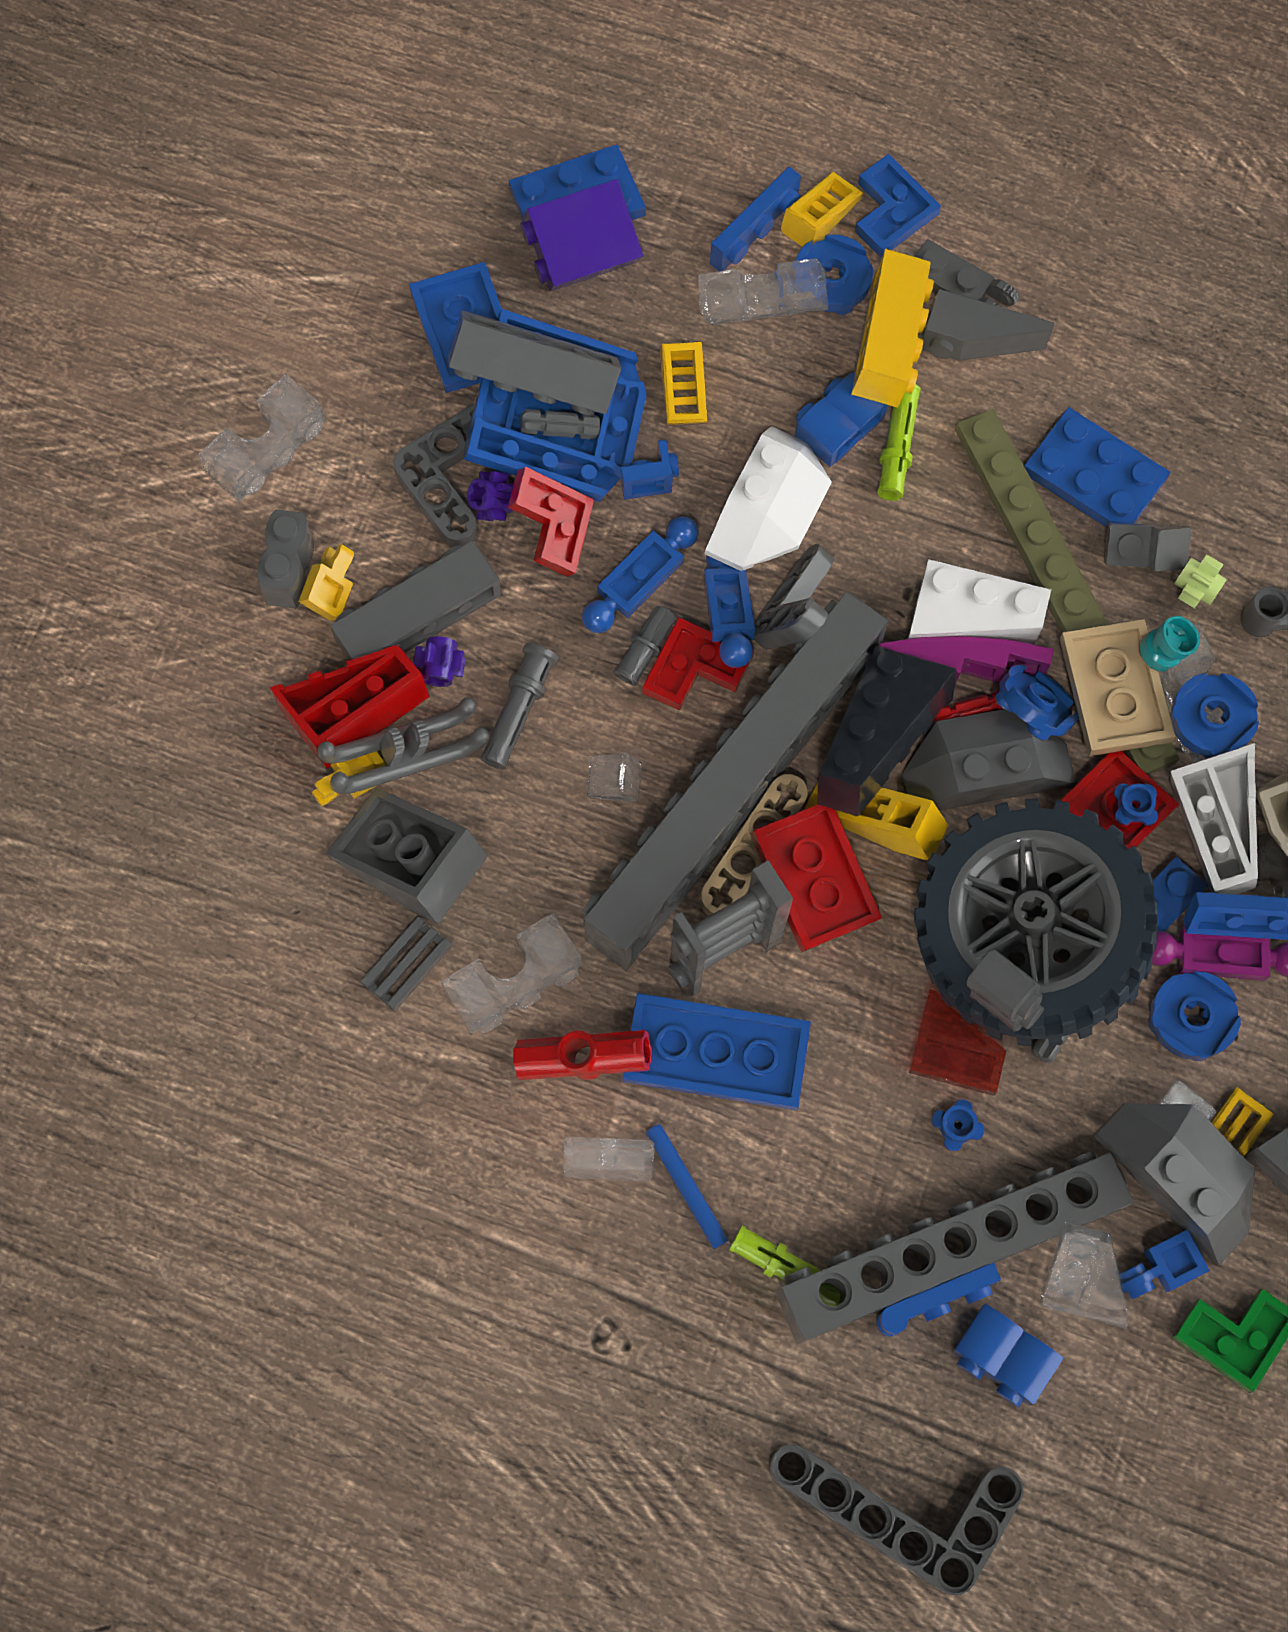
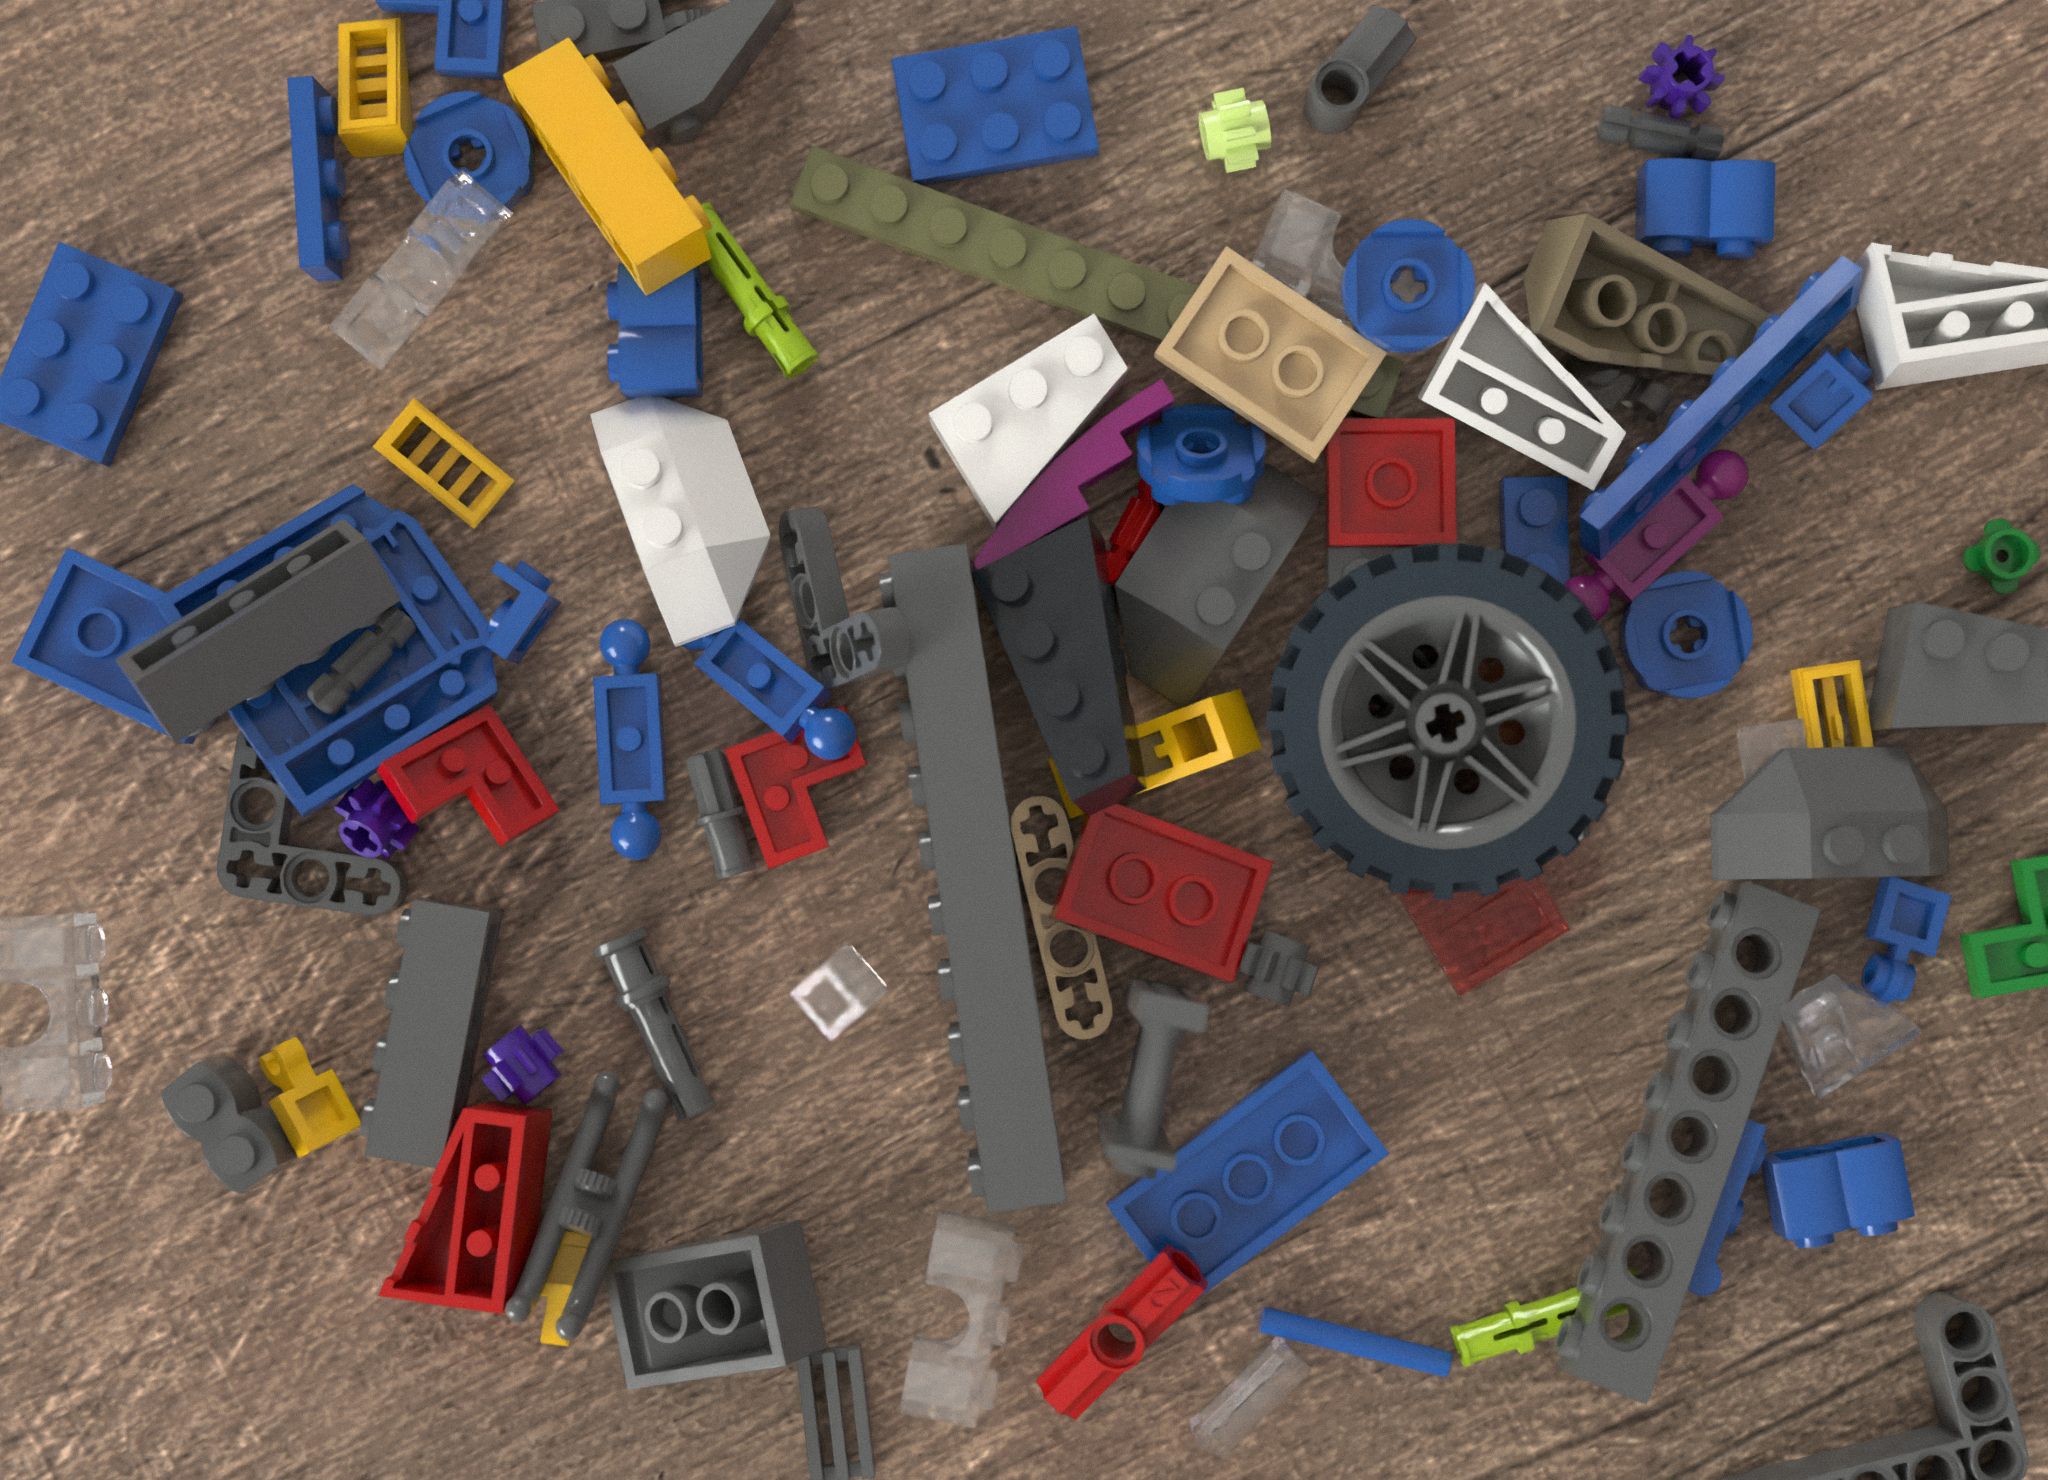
camera: 45 degrees left, 15 degrees up
(581, 235) = (143, 407): dark purple brick -> none
(833, 967) = (1277, 968): none -> dark grey gear
(963, 1113) = (1577, 993): blue plate -> none
(1006, 991) = (1521, 861): dark grey brick -> none
(1146, 797) = (1432, 464): blue plate -> none
(1147, 546) = (1143, 137): dark grey slope -> none
(1169, 643) = (1286, 254): teal wheel -> none

